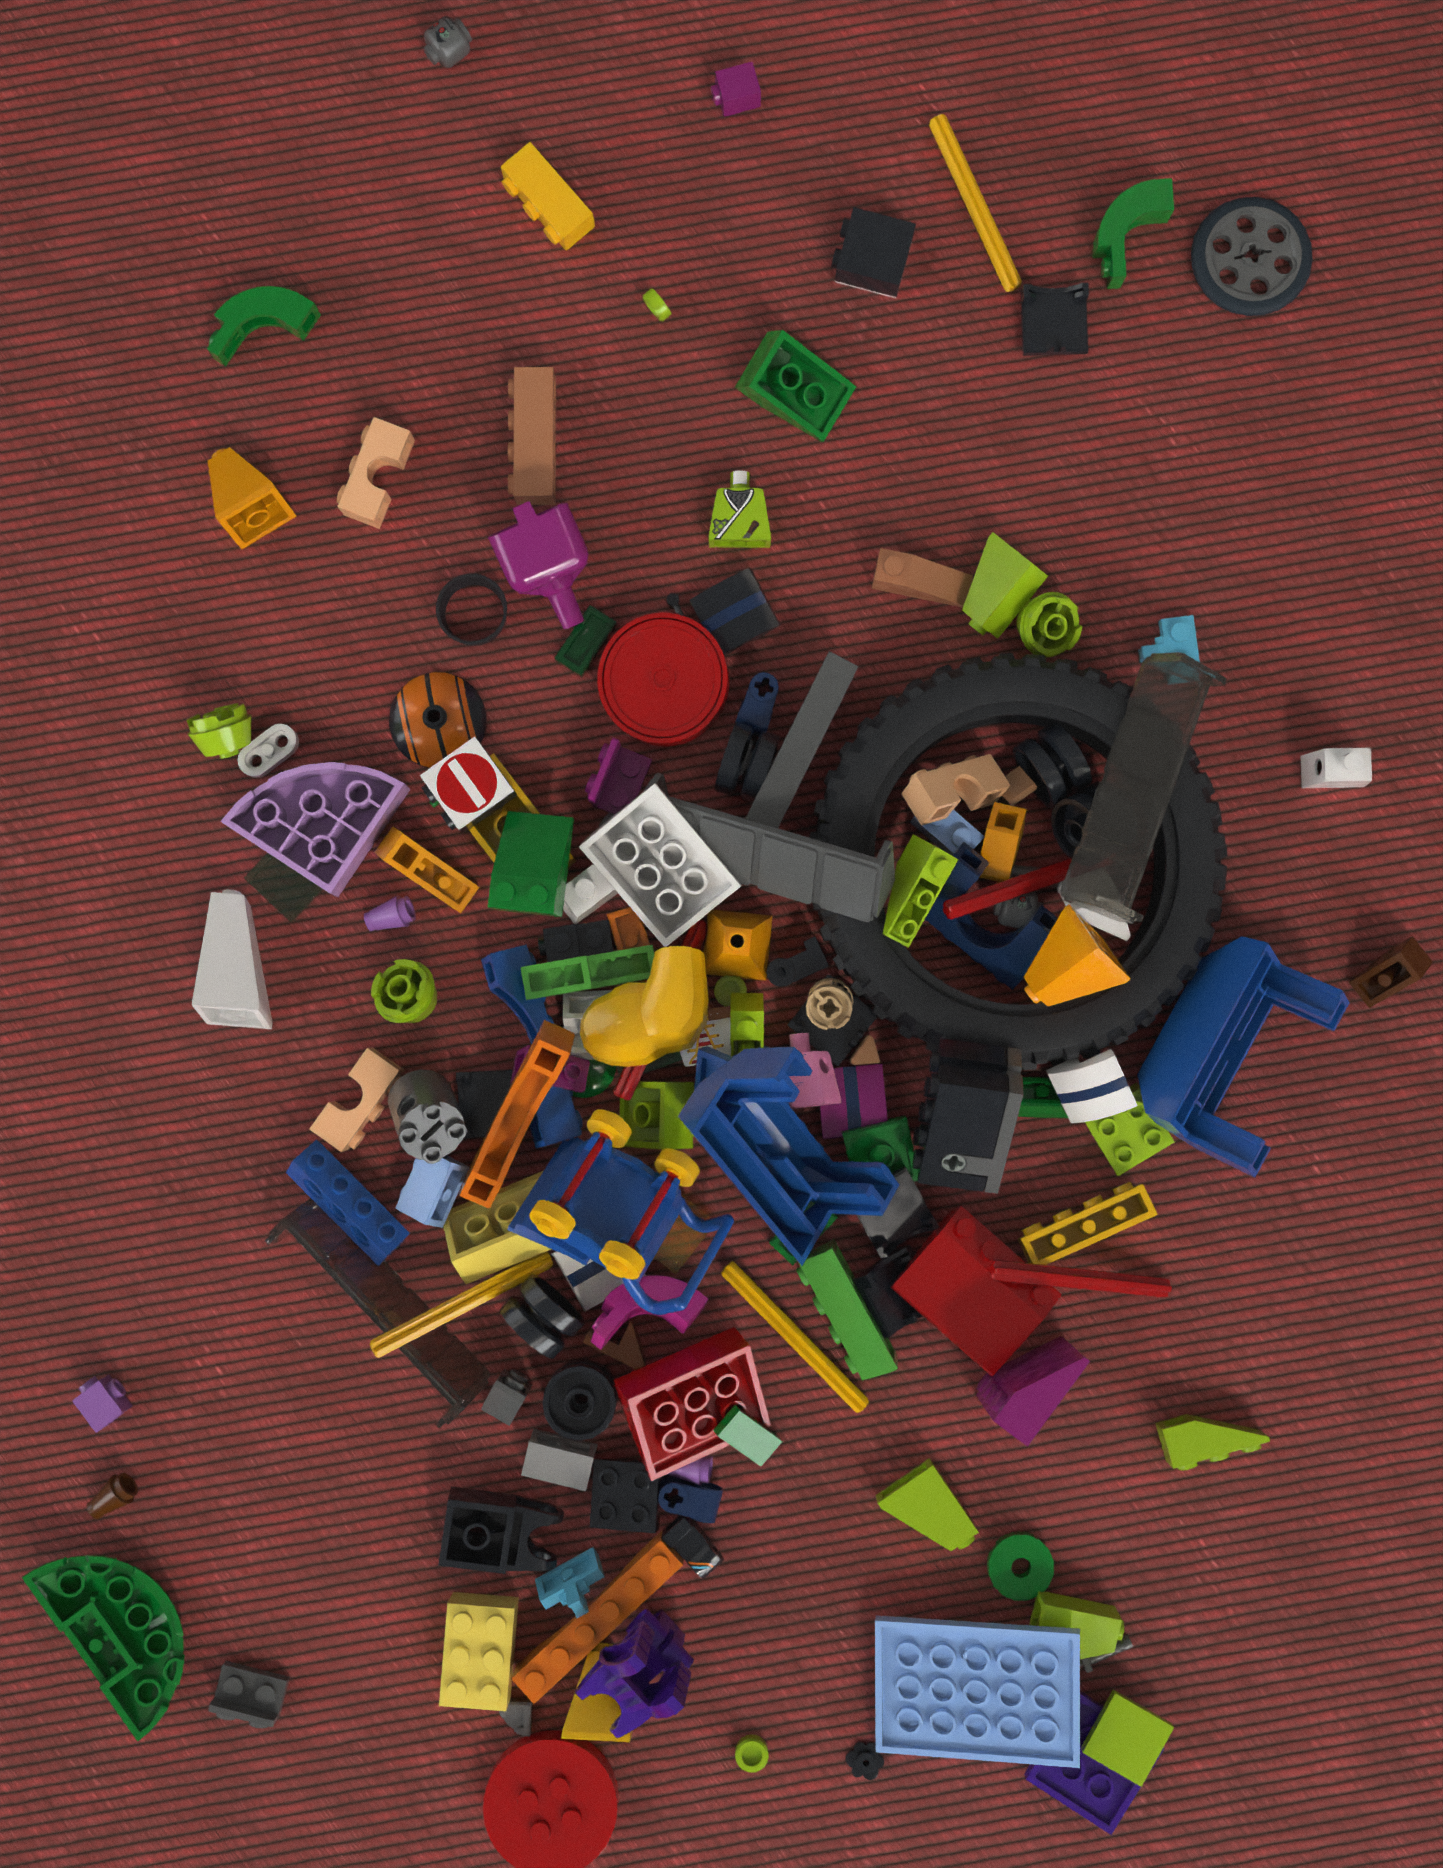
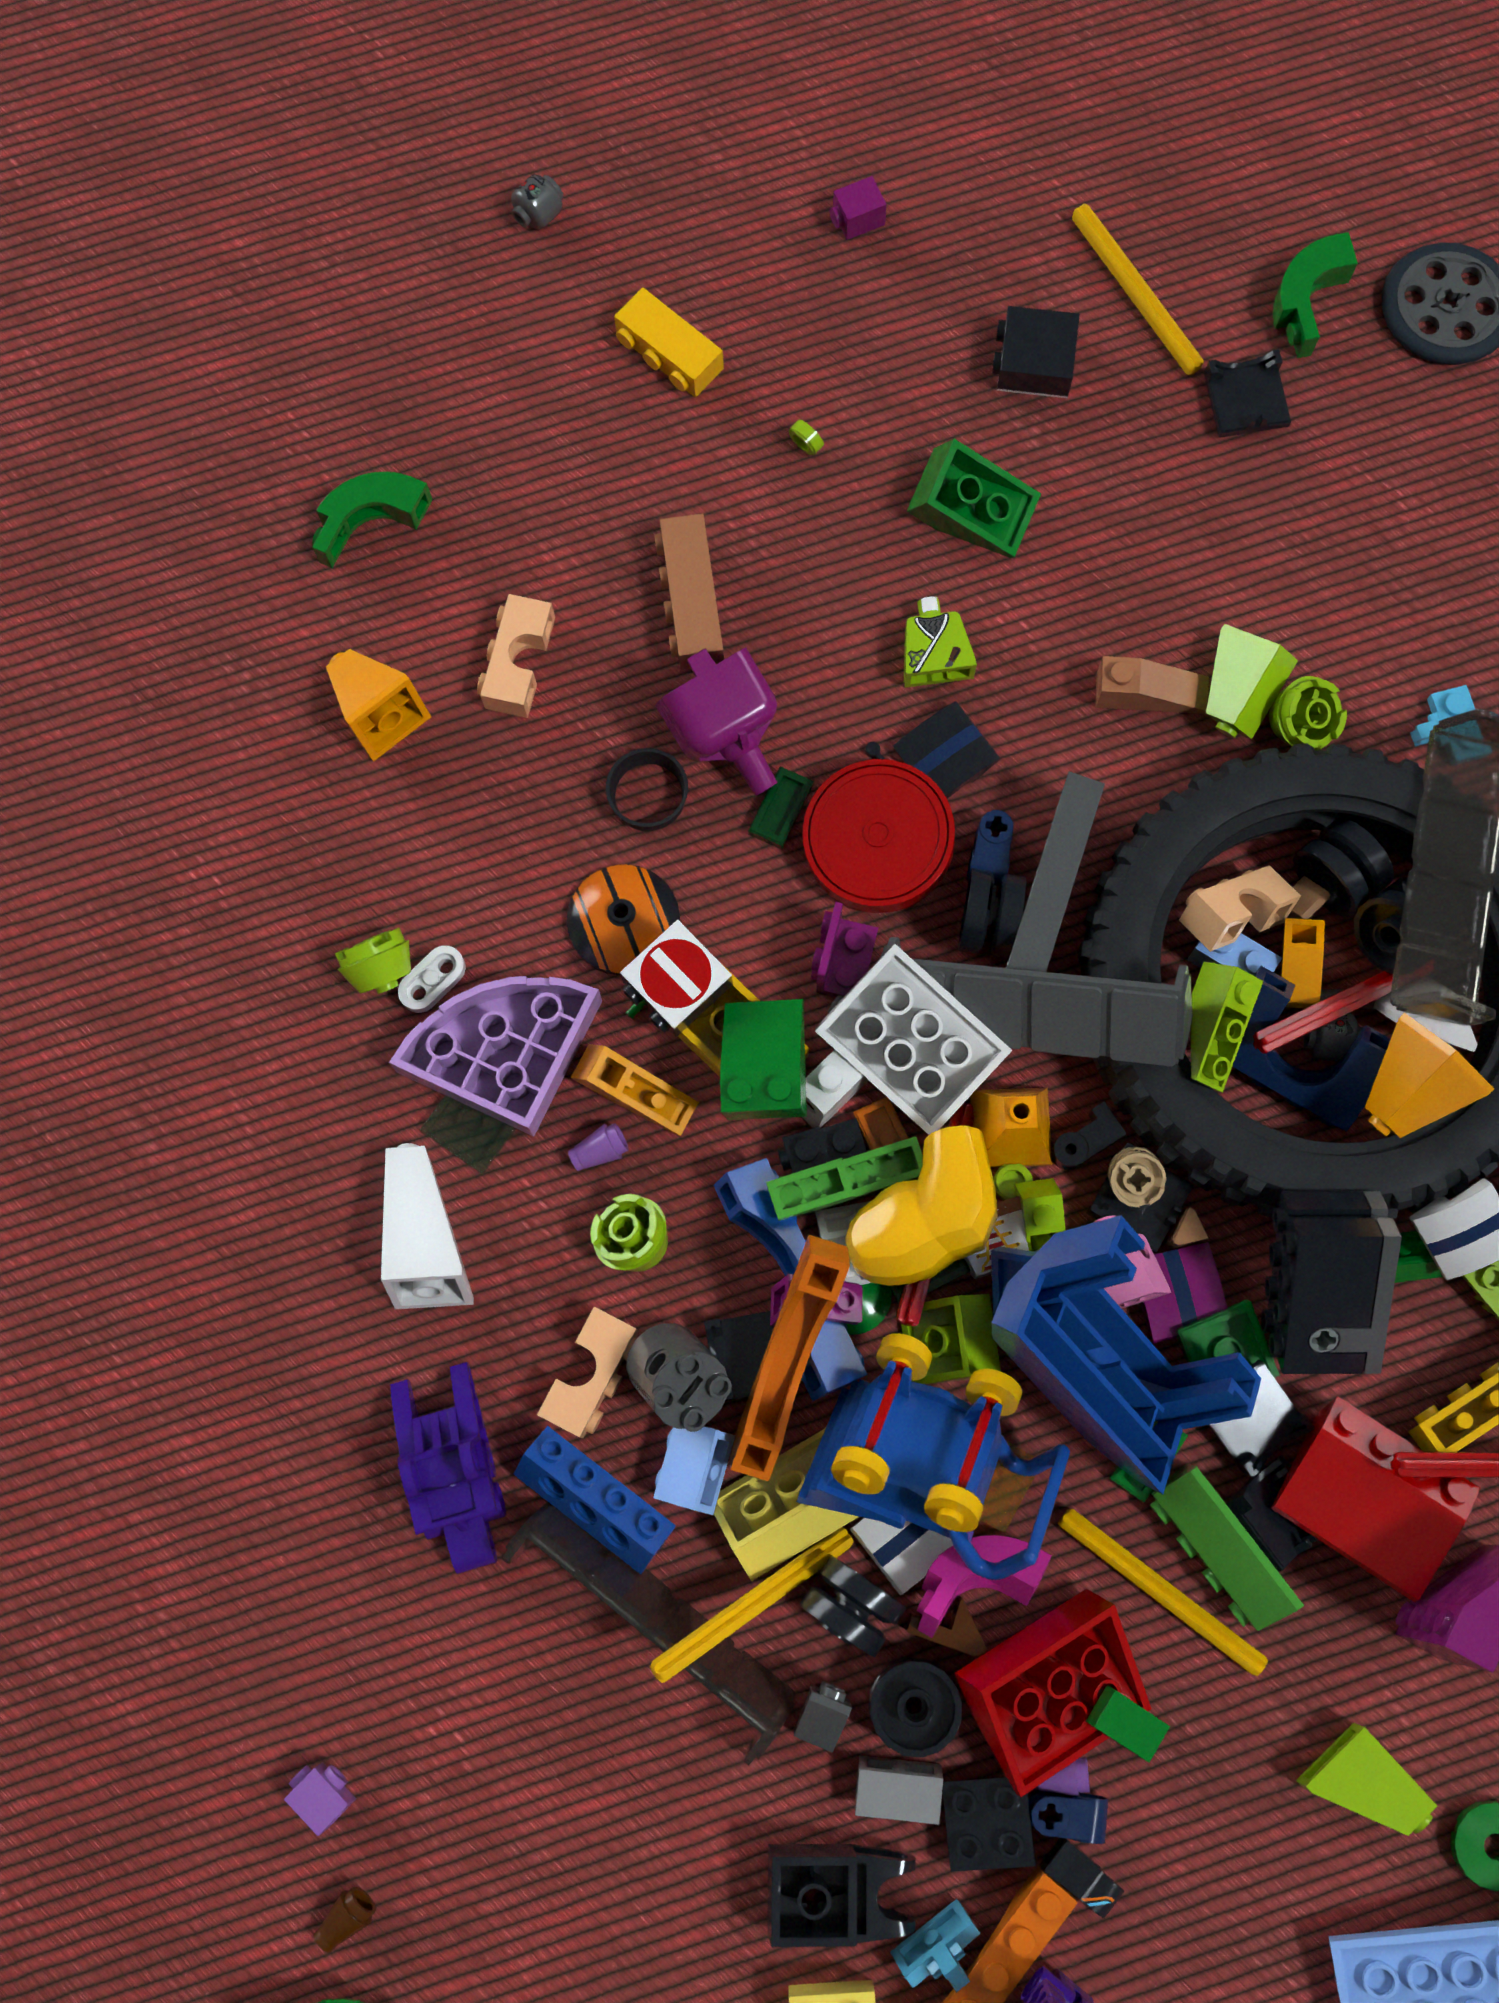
camera: 10 degrees left, 10 degrees down
(233, 1162) = (449, 1471): none -> dark purple piece

